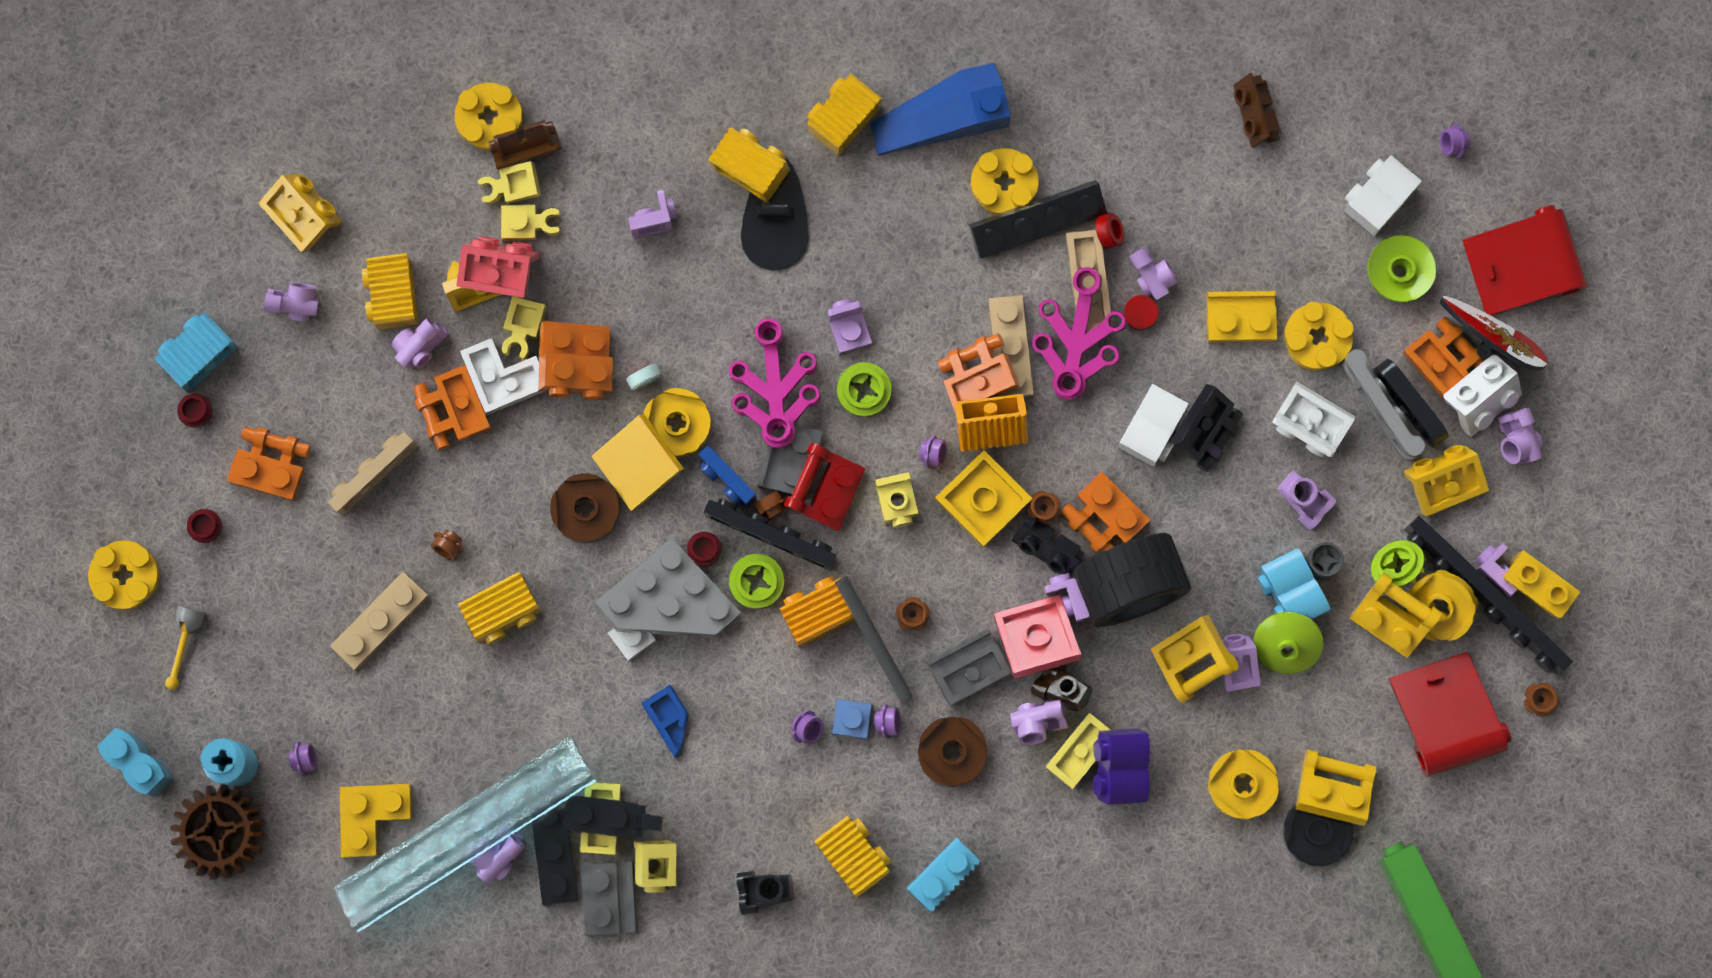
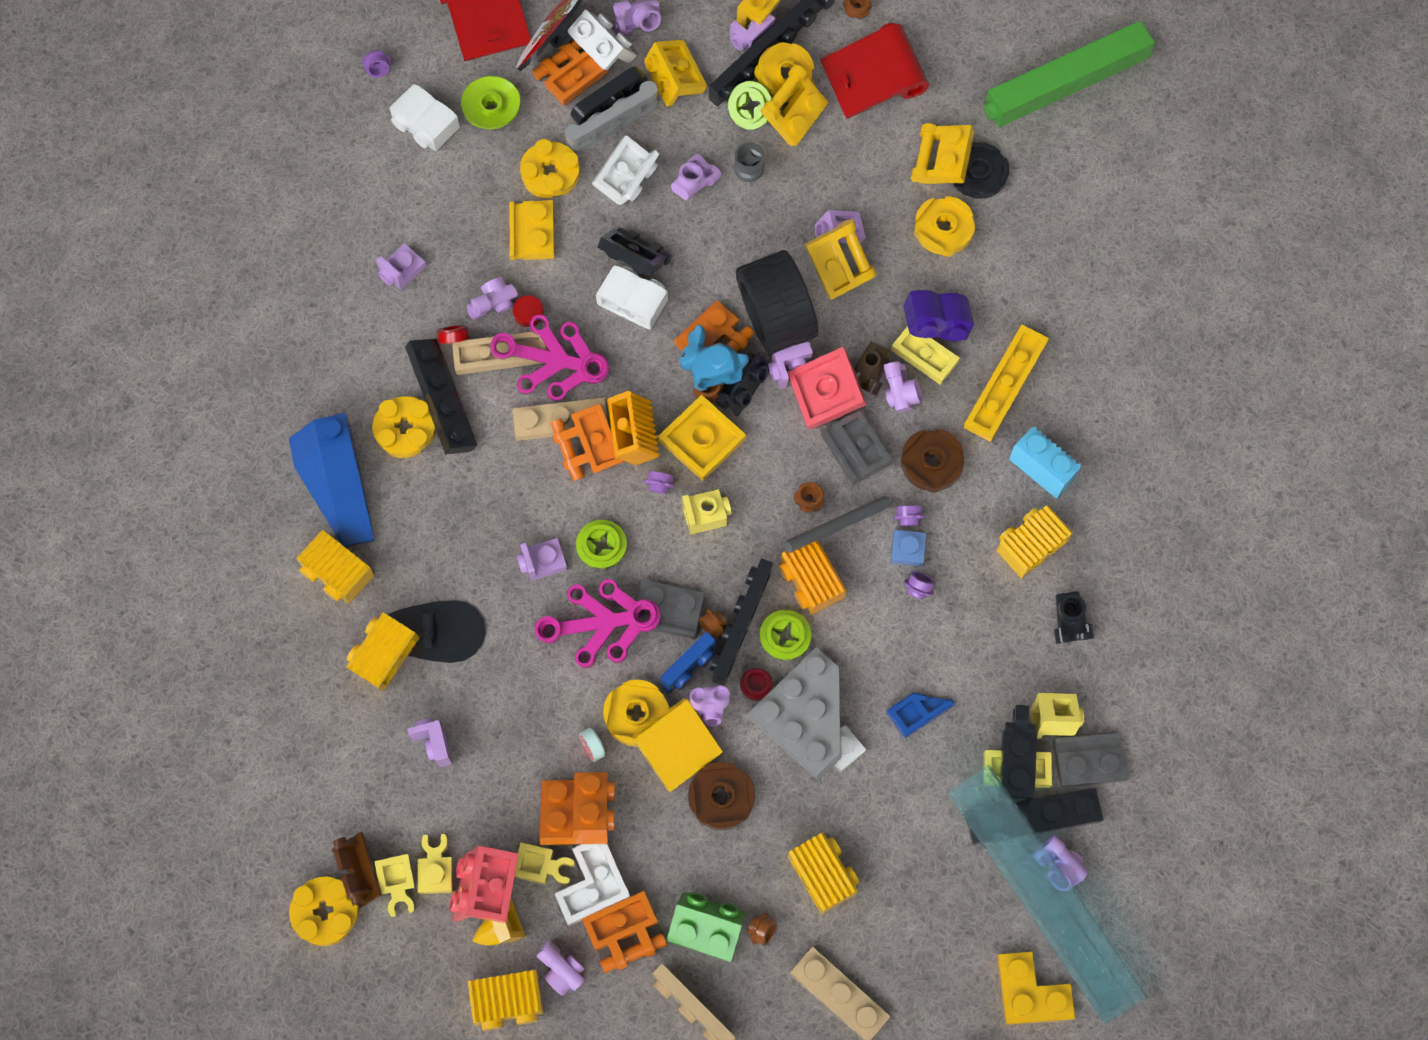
camera: 95 degrees left, 10 degrees down
(454, 489) = (706, 926): none -> bracket
(679, 496) = (710, 703): none -> lavender plate
(834, 490) = (699, 568): red plate -> none
(1044, 841) = (1006, 383): none -> yellow plate
(1063, 508) = (711, 364): none -> dark azure animal
(1195, 173) = (400, 267): none -> lavender bracket
(1251, 96) = (344, 219): reddish brown hinge -> none
(1288, 630) = (821, 187): lime dish -> none
(1293, 586) = (775, 186): medium azure brick -> none

